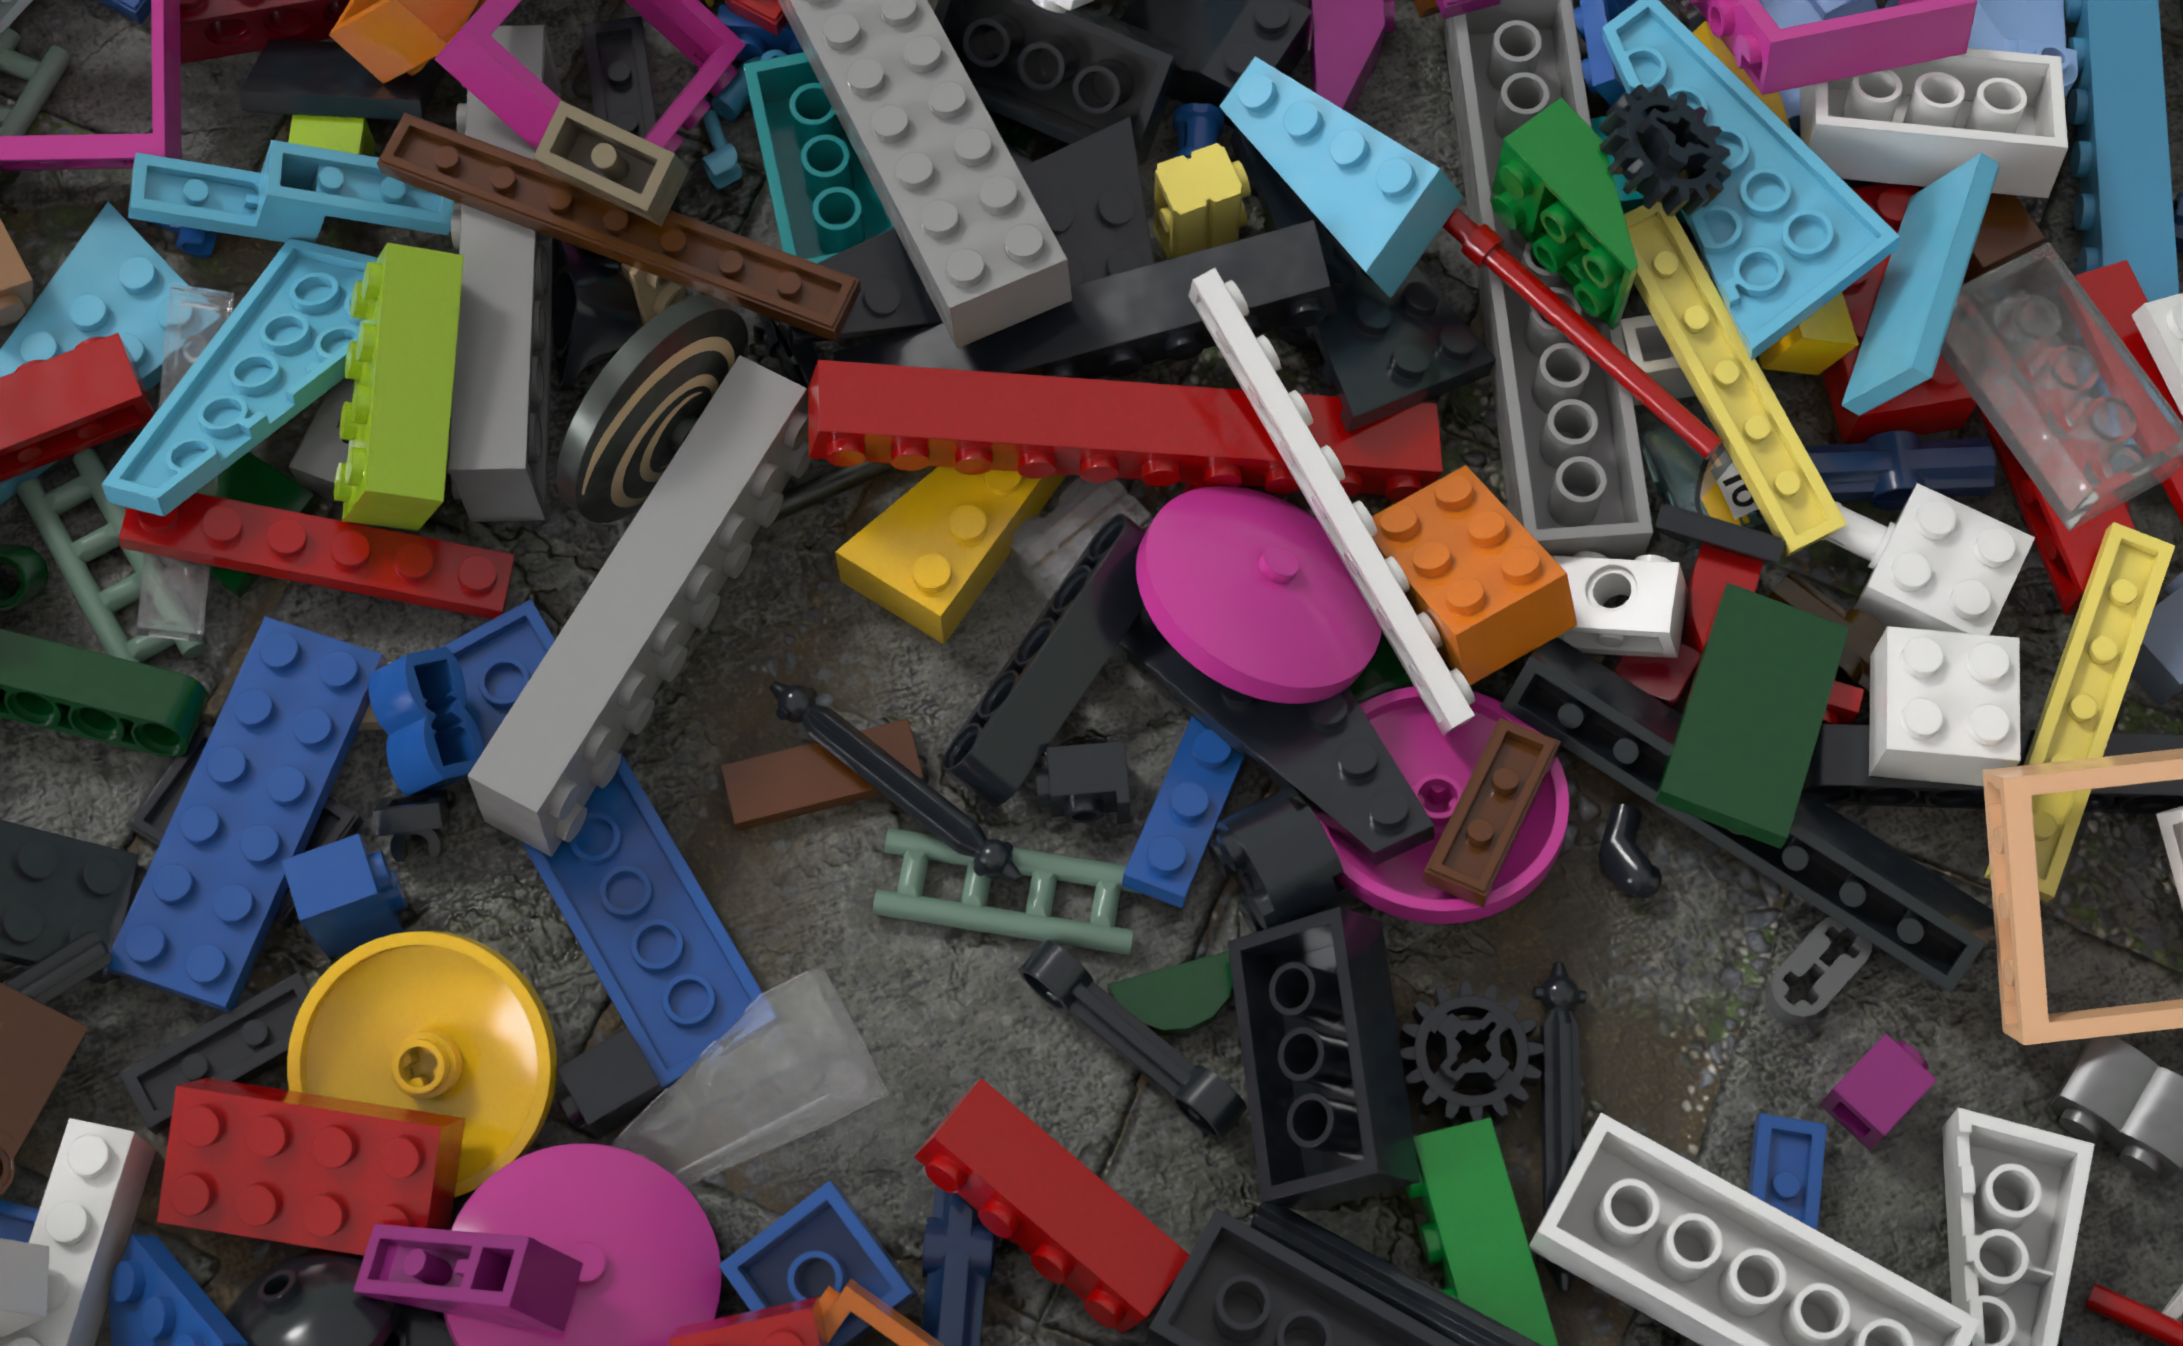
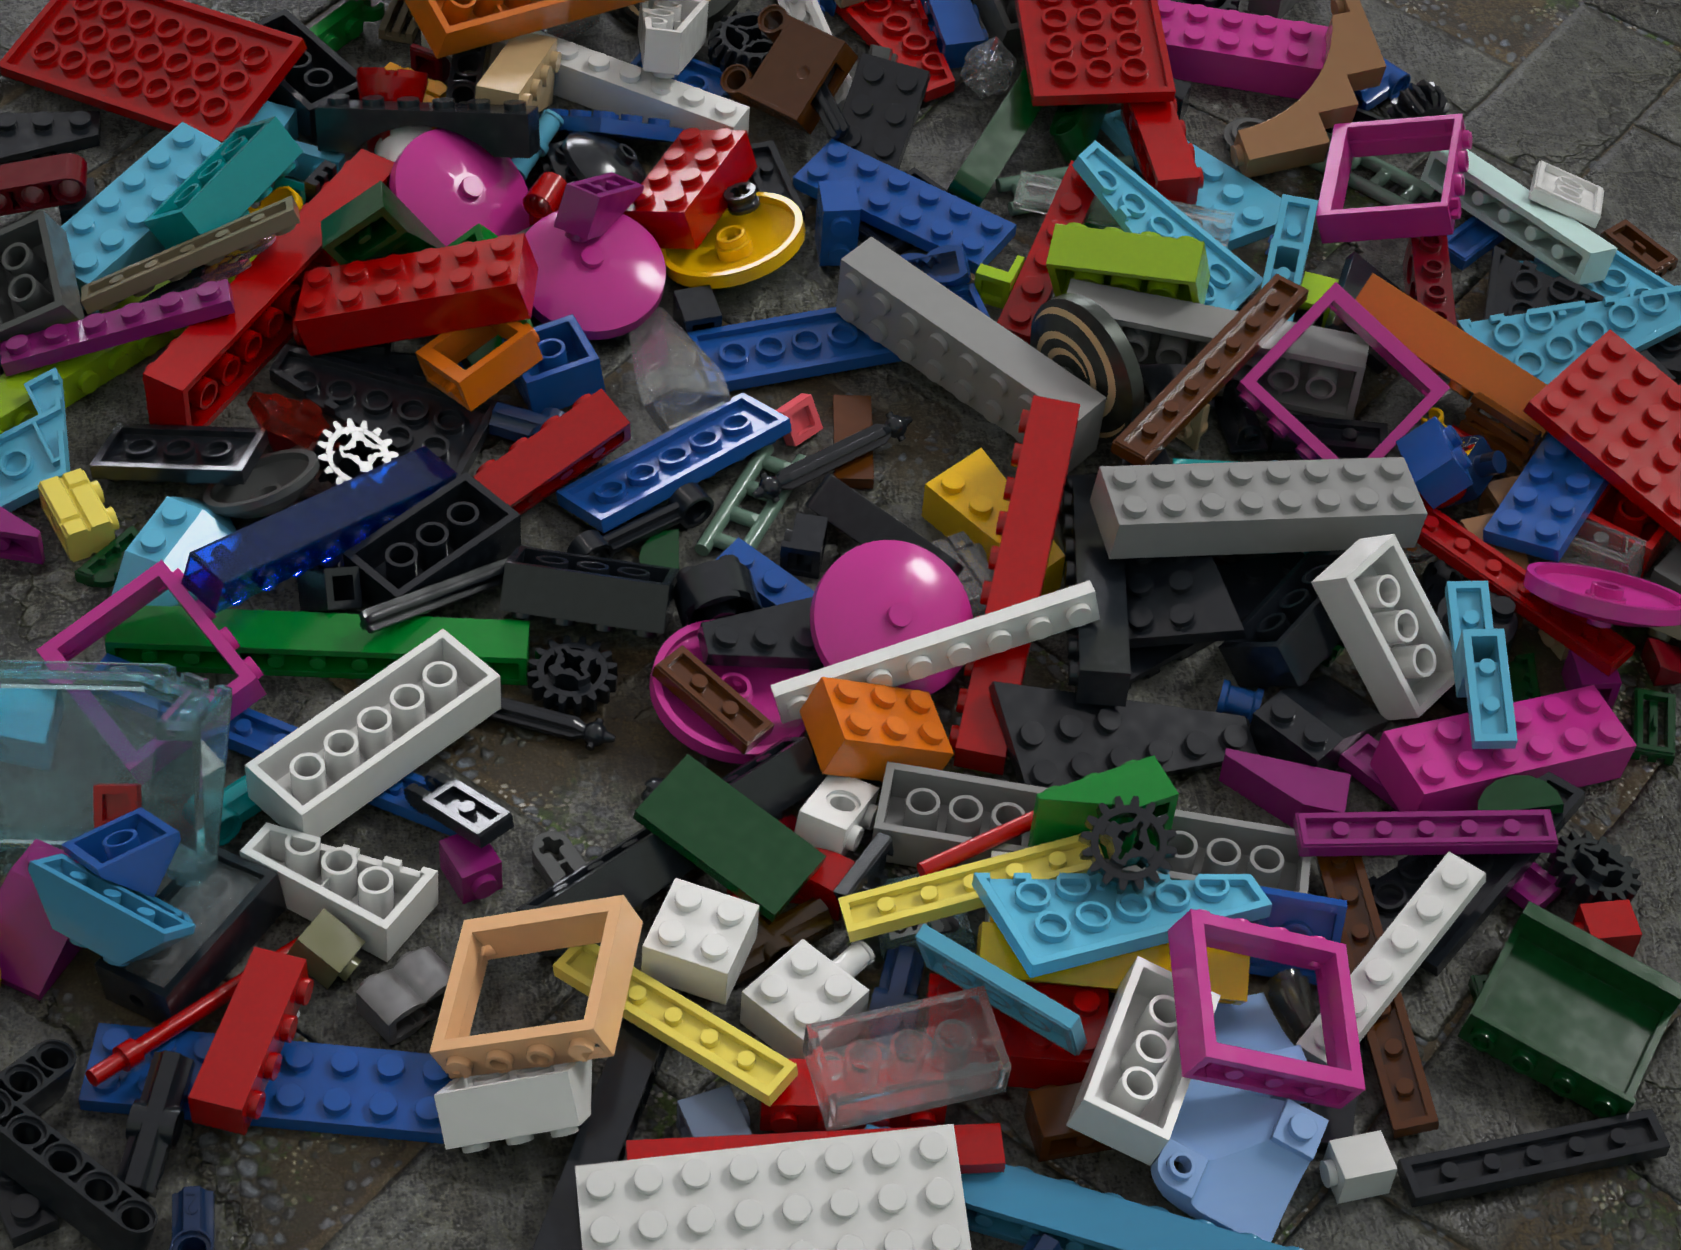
camera: 100 degrees right, 20 degrees down
(309, 1081) = (741, 198): none -> black bush
(393, 619) = (996, 284): none -> lime panel
(611, 163) = (1237, 344): dark tan brick -> none
(815, 860) = (803, 419): none -> coral tile
(973, 1017) = (672, 460): none -> blue plate
(1199, 201) = (1180, 667): light yellow brick -> none
(1354, 179) = (1175, 717): medium azure wedge -> none
(1834, 1111) = (460, 808): none -> black hinge
(2118, 1243) = (328, 949): none -> olive brick

